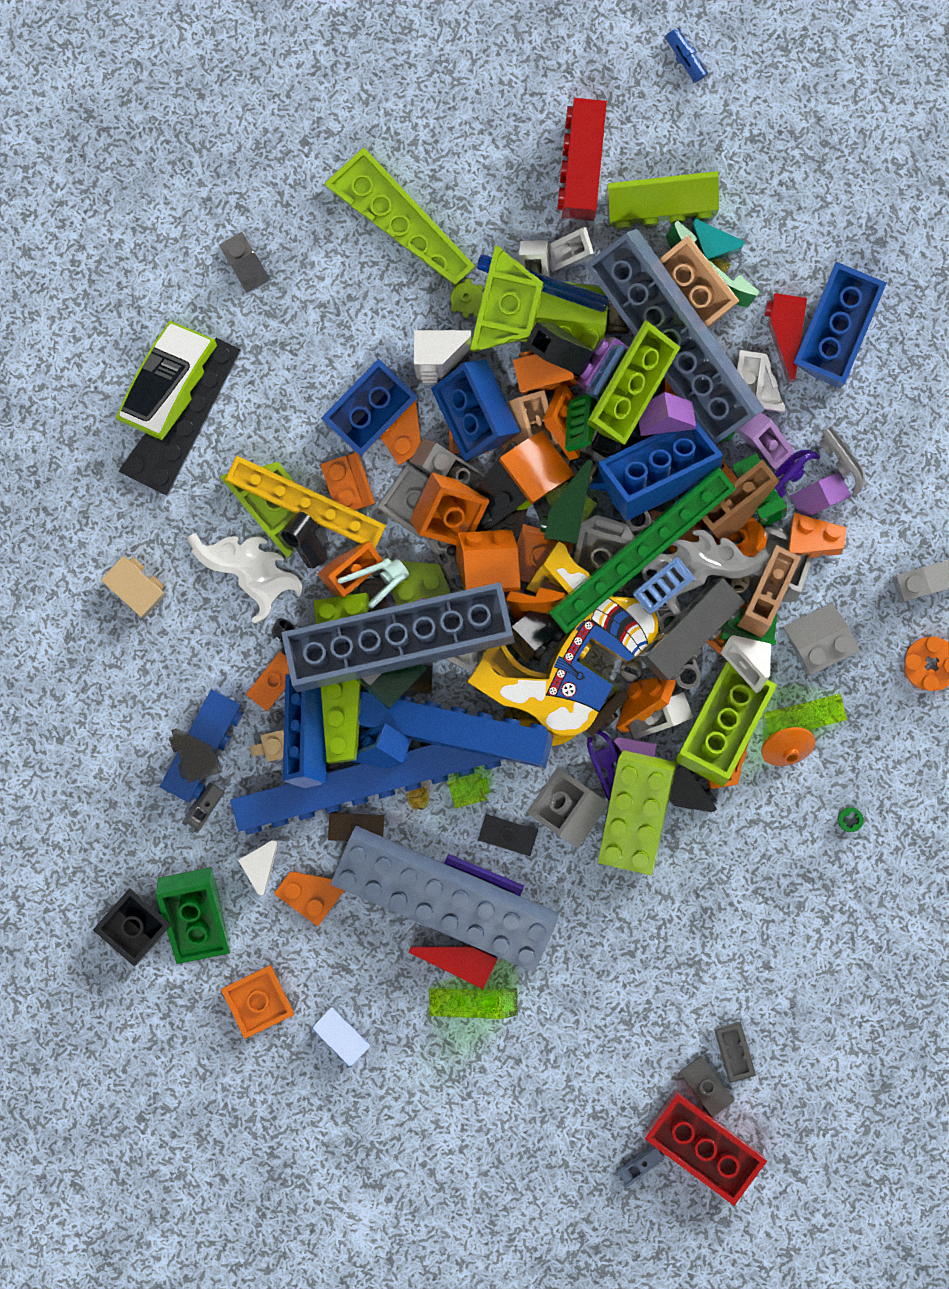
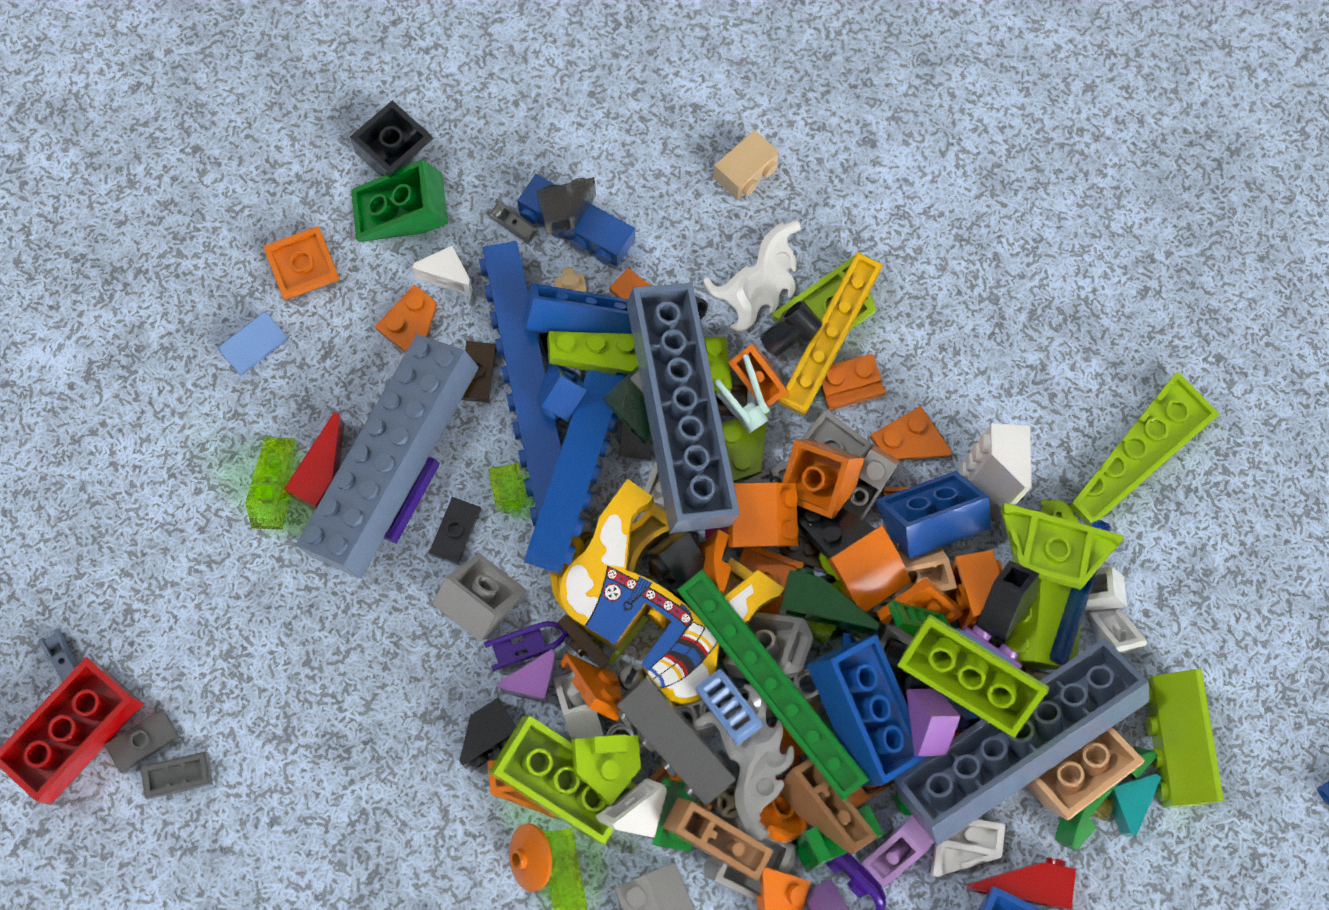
camera: 85 degrees right, 15 degrees down
(160, 461) = (905, 213): black wing -> none
(165, 380) = (963, 201): slope -> none
(244, 262) = (1087, 289): flat silver slope -> none
(369, 407) = (936, 400): blue slope -> none
(418, 798) = (503, 436): clear yellow hinge -> none
(584, 157) = (1224, 648): red brick -> none
(637, 812) = (466, 669): lime brick -> none
(713, 686) = (607, 763): none -> lime plate

